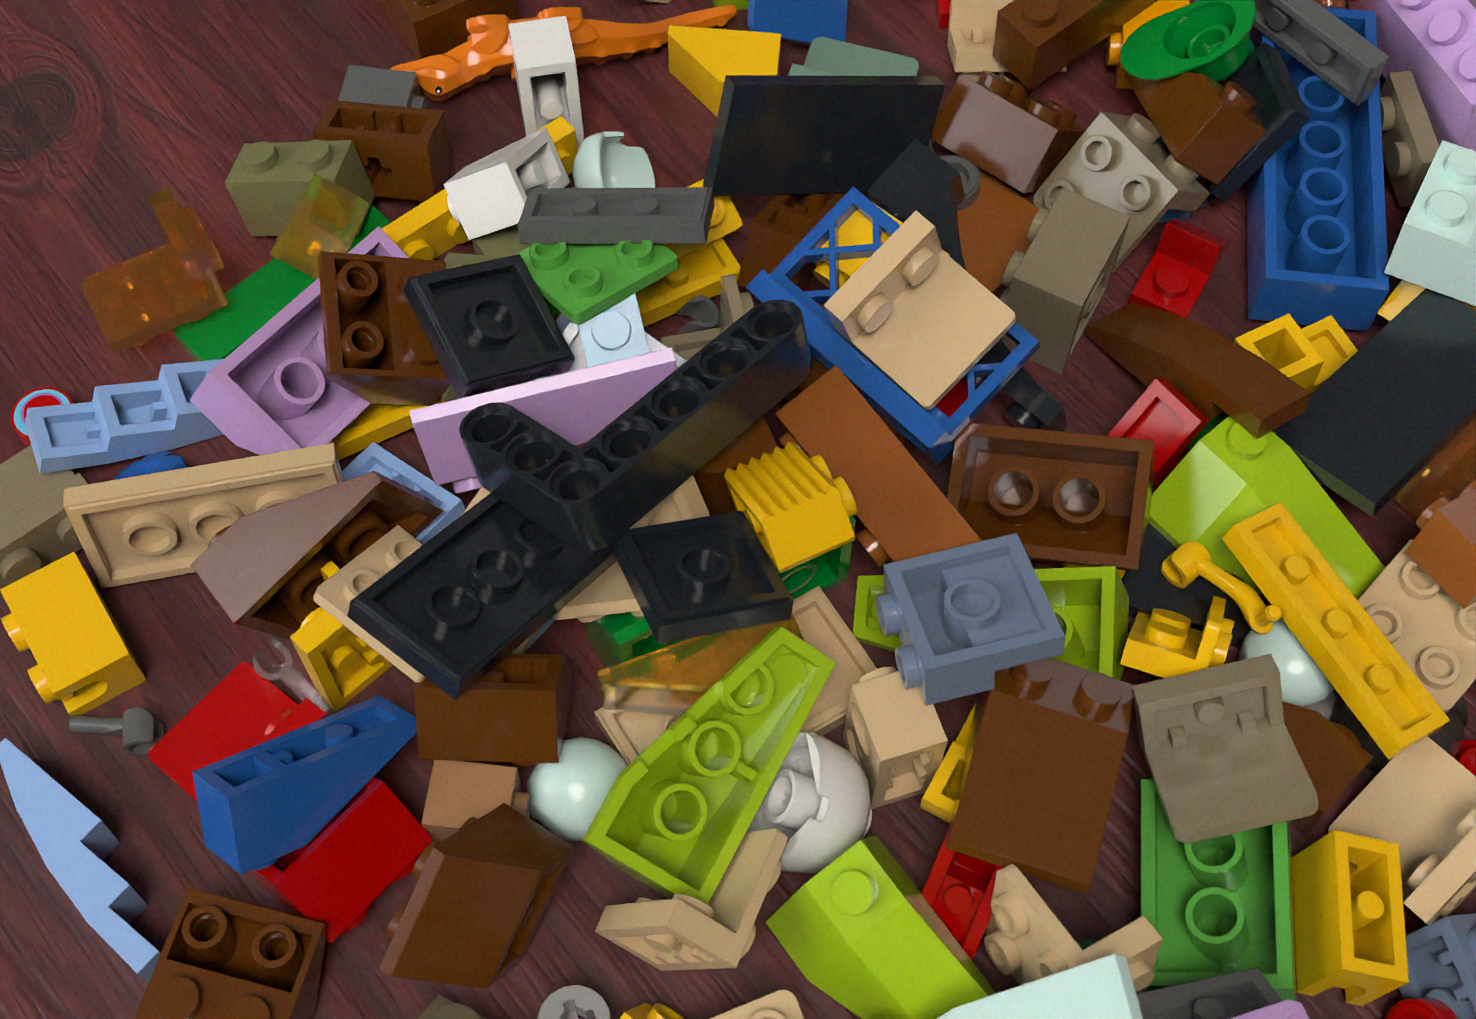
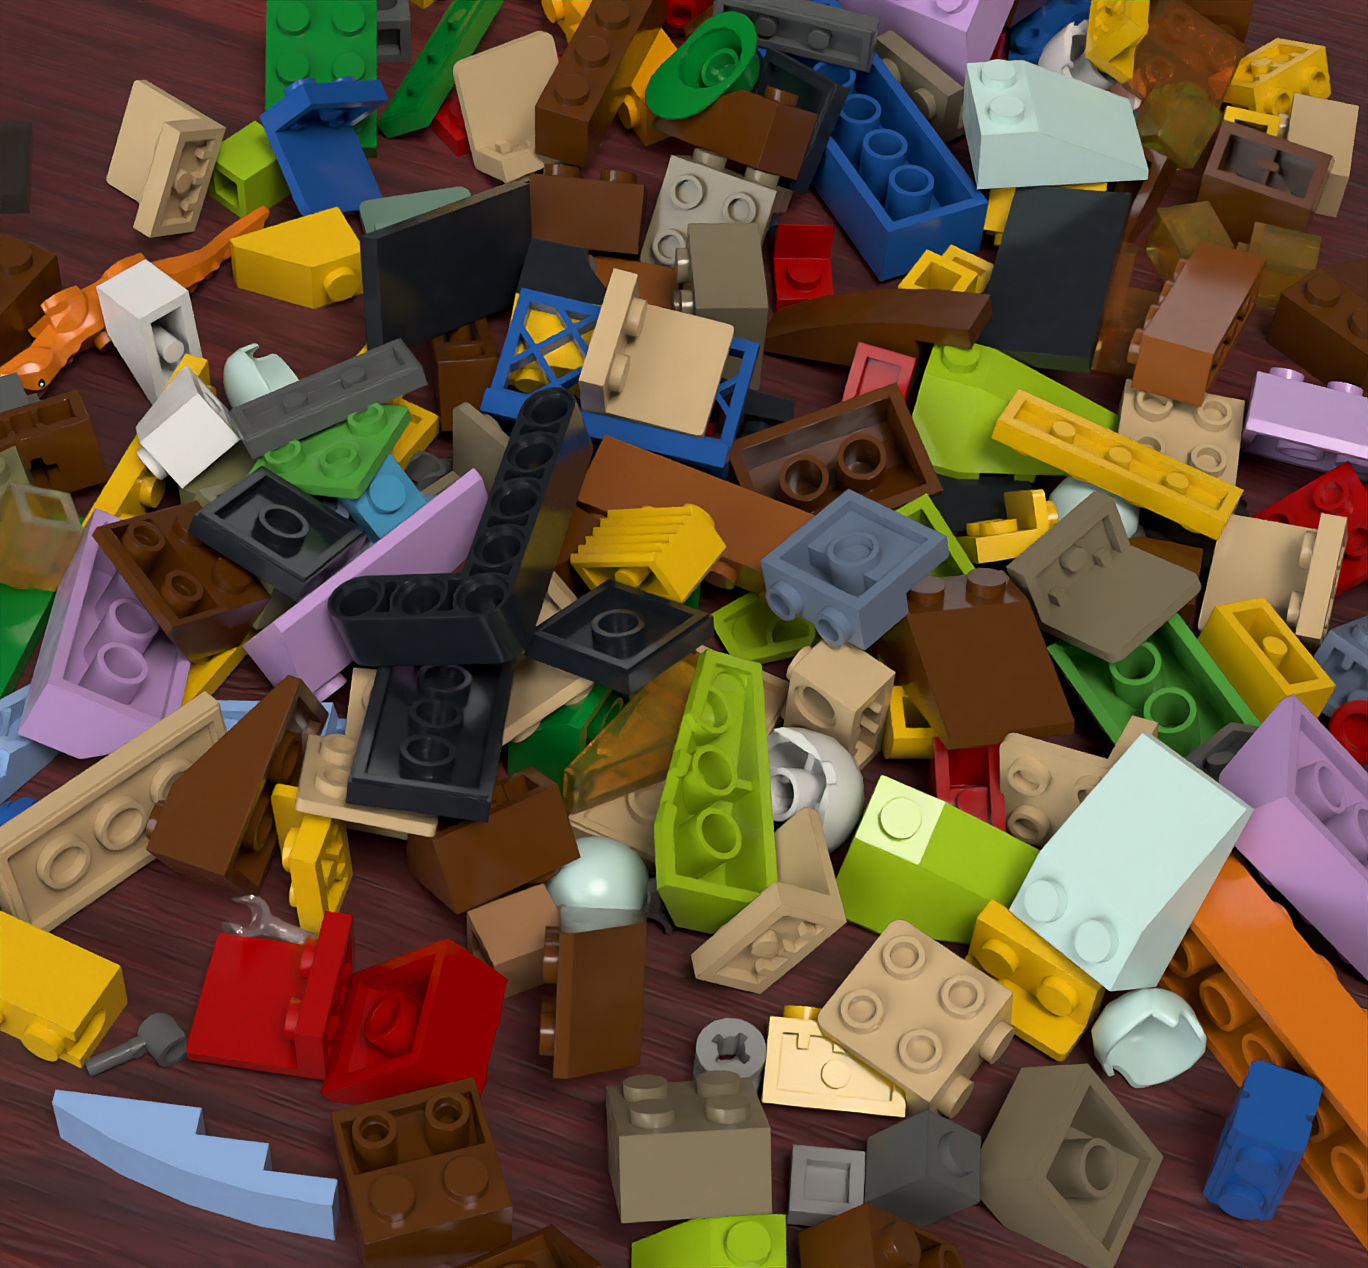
camera: 35 degrees left, 10 degrees down
(294, 784) = (370, 979): blue slope -> none
(1194, 560) = (971, 473): yellow piece -> none

